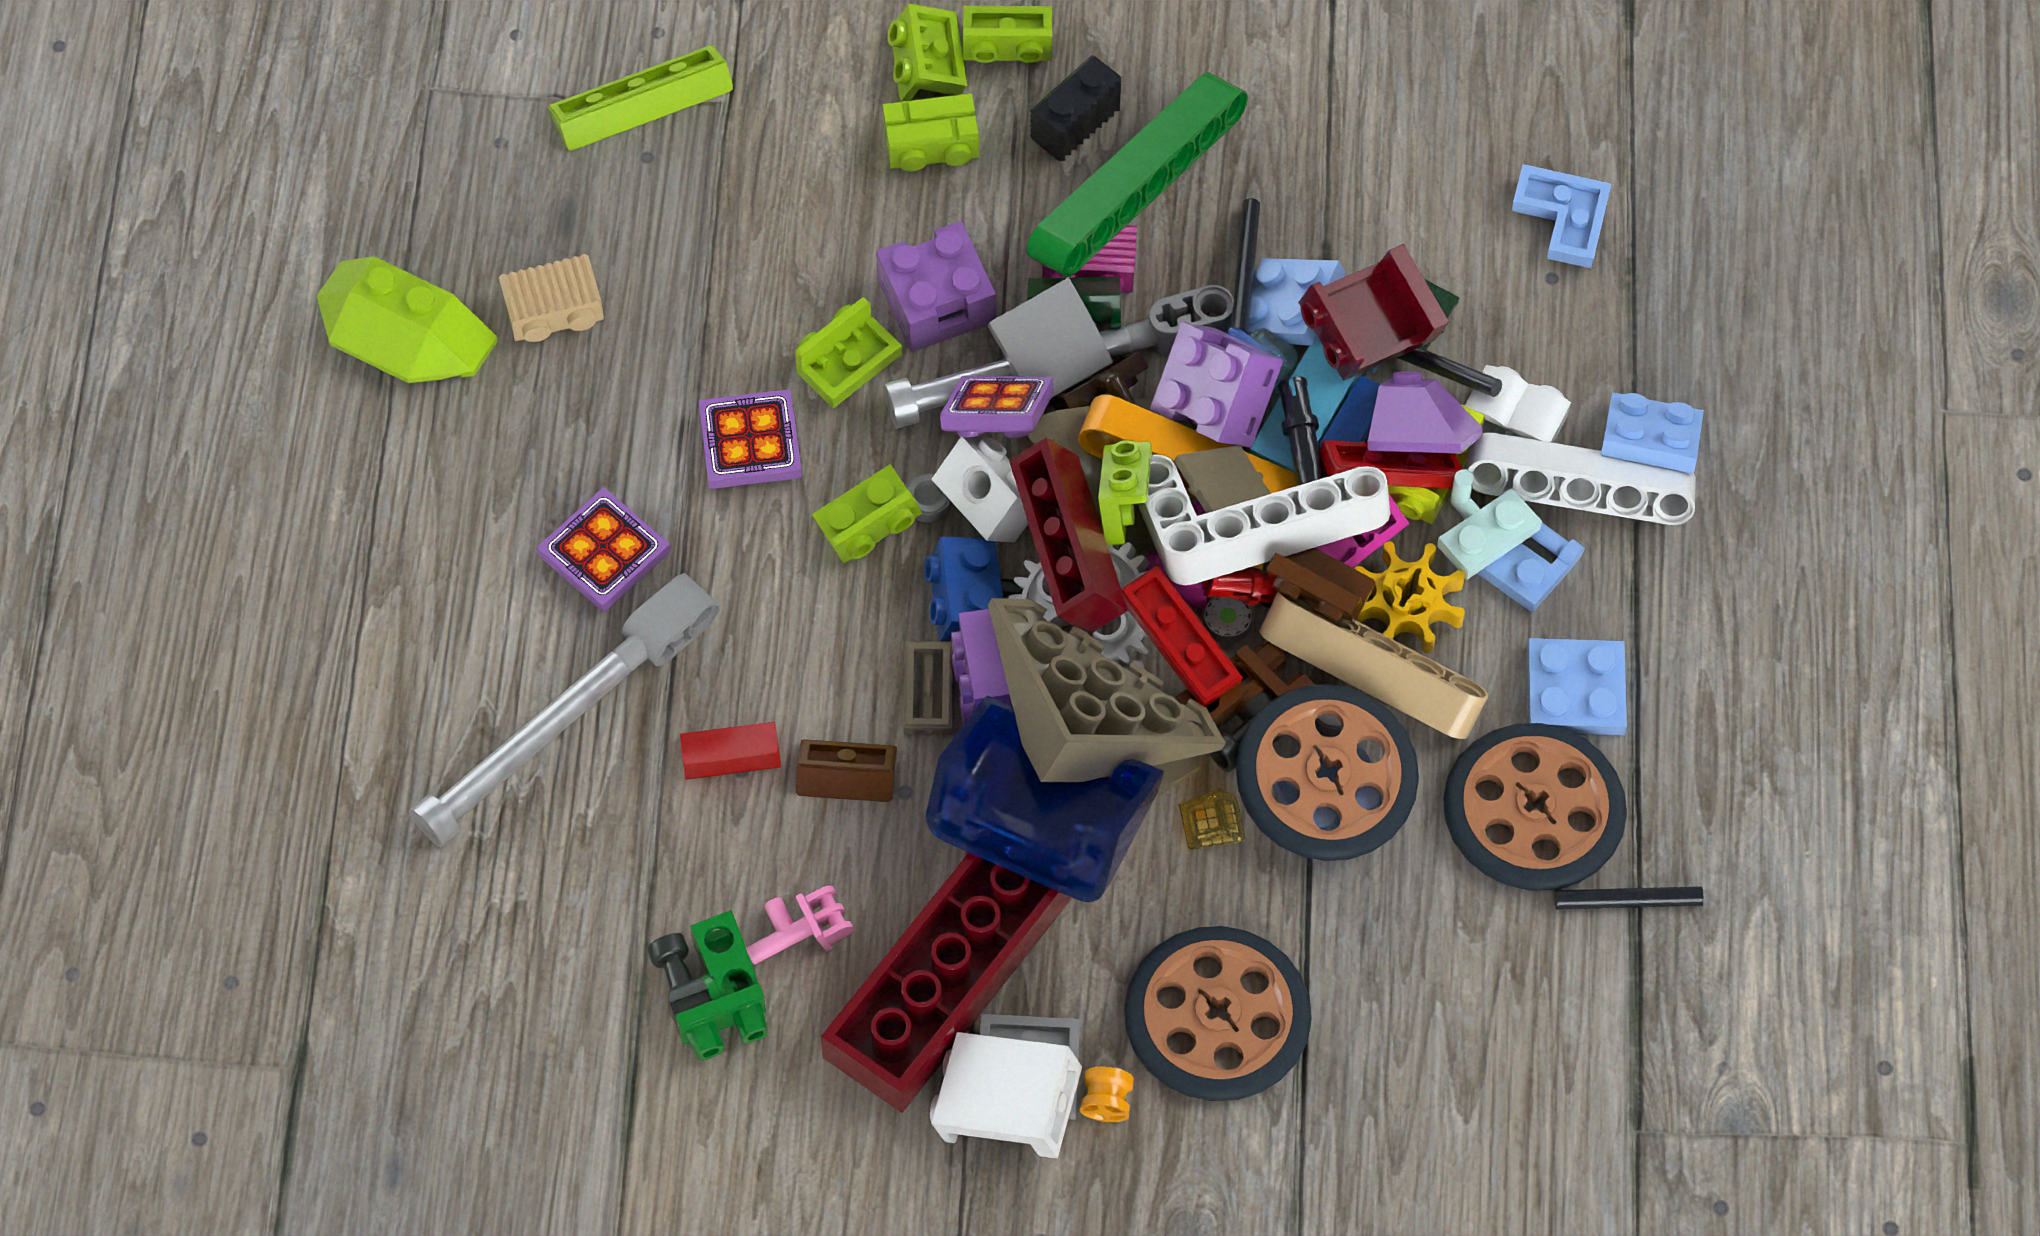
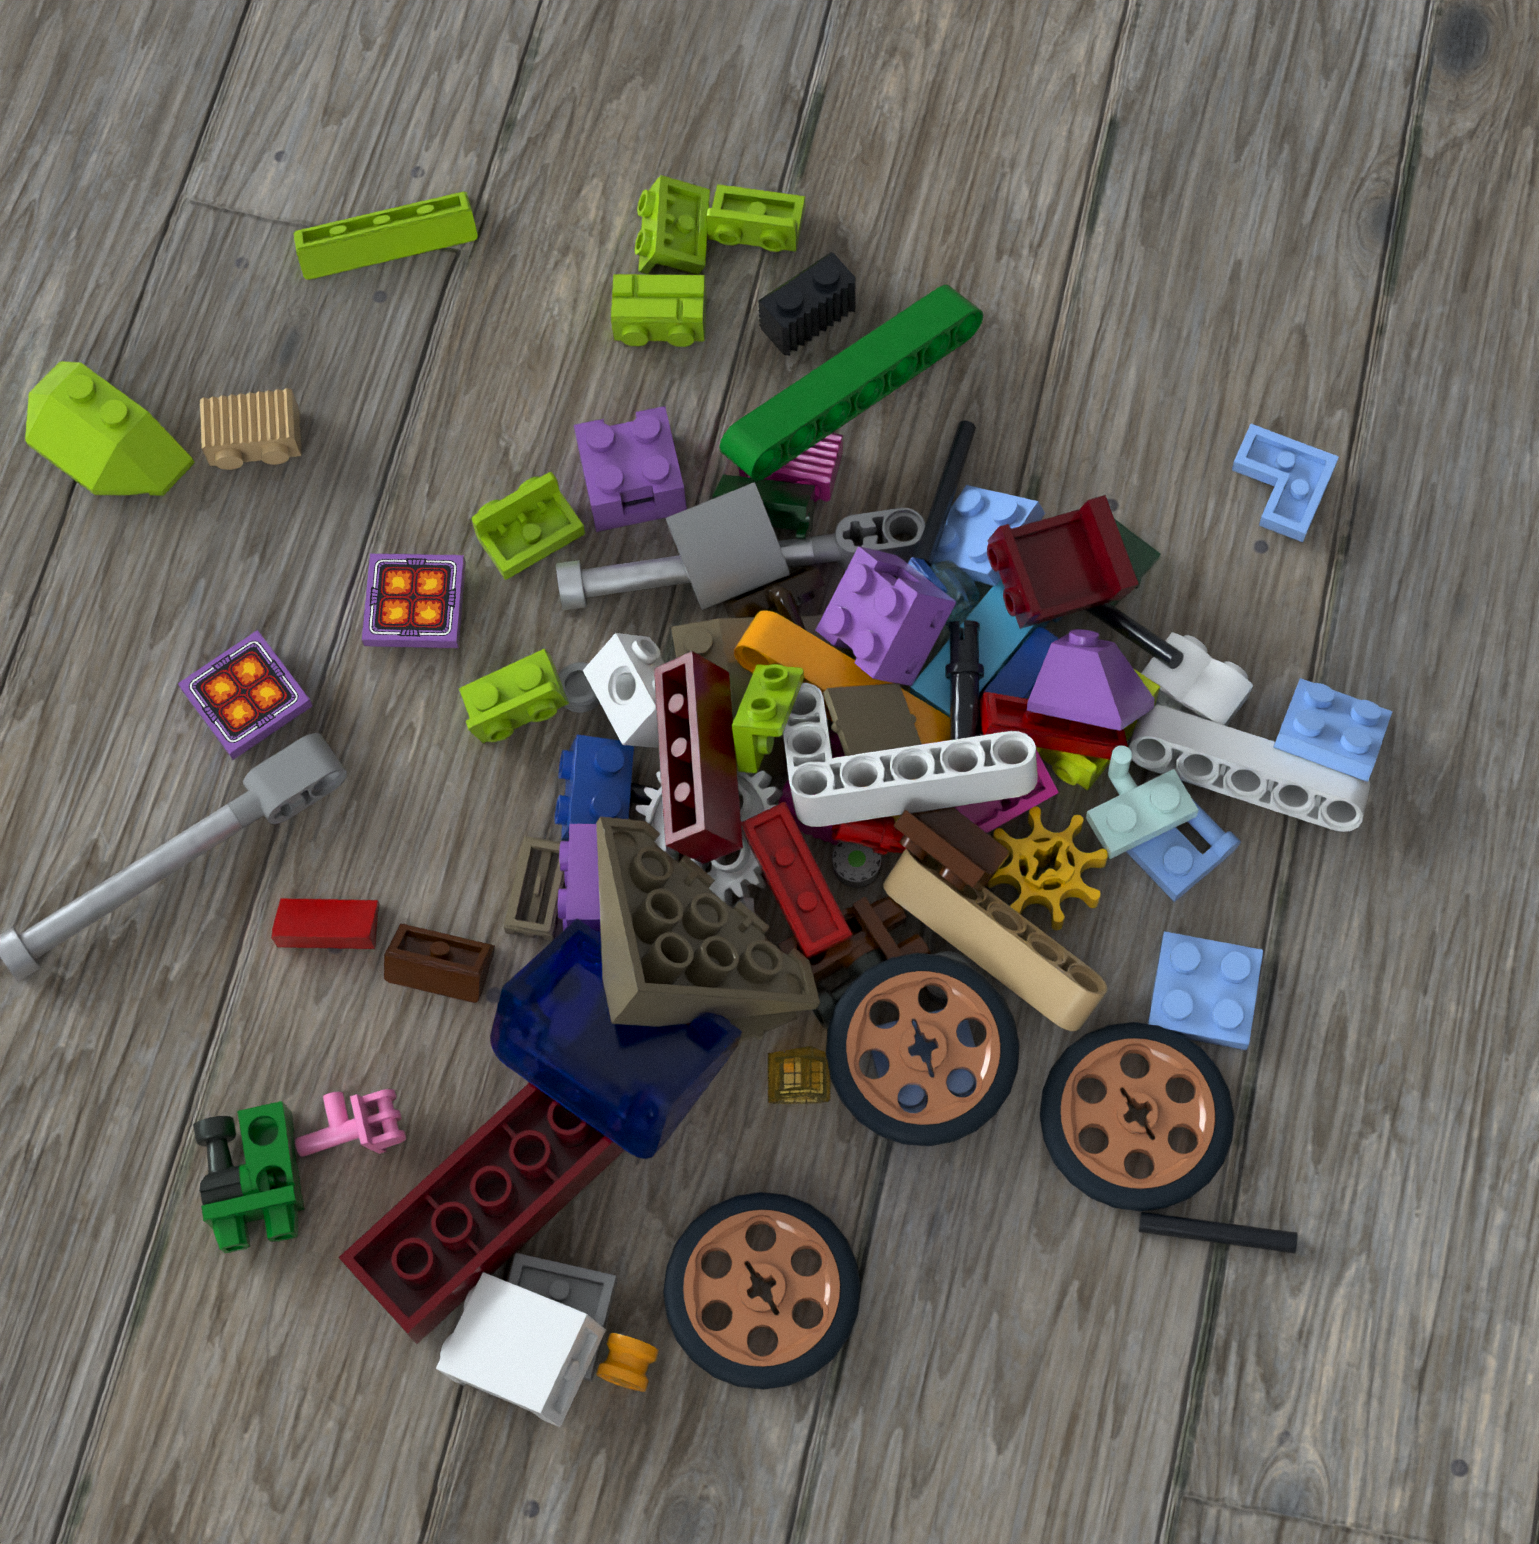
camera: 15 degrees right, 5 degrees up
(996, 405) = (657, 605): tile -> none

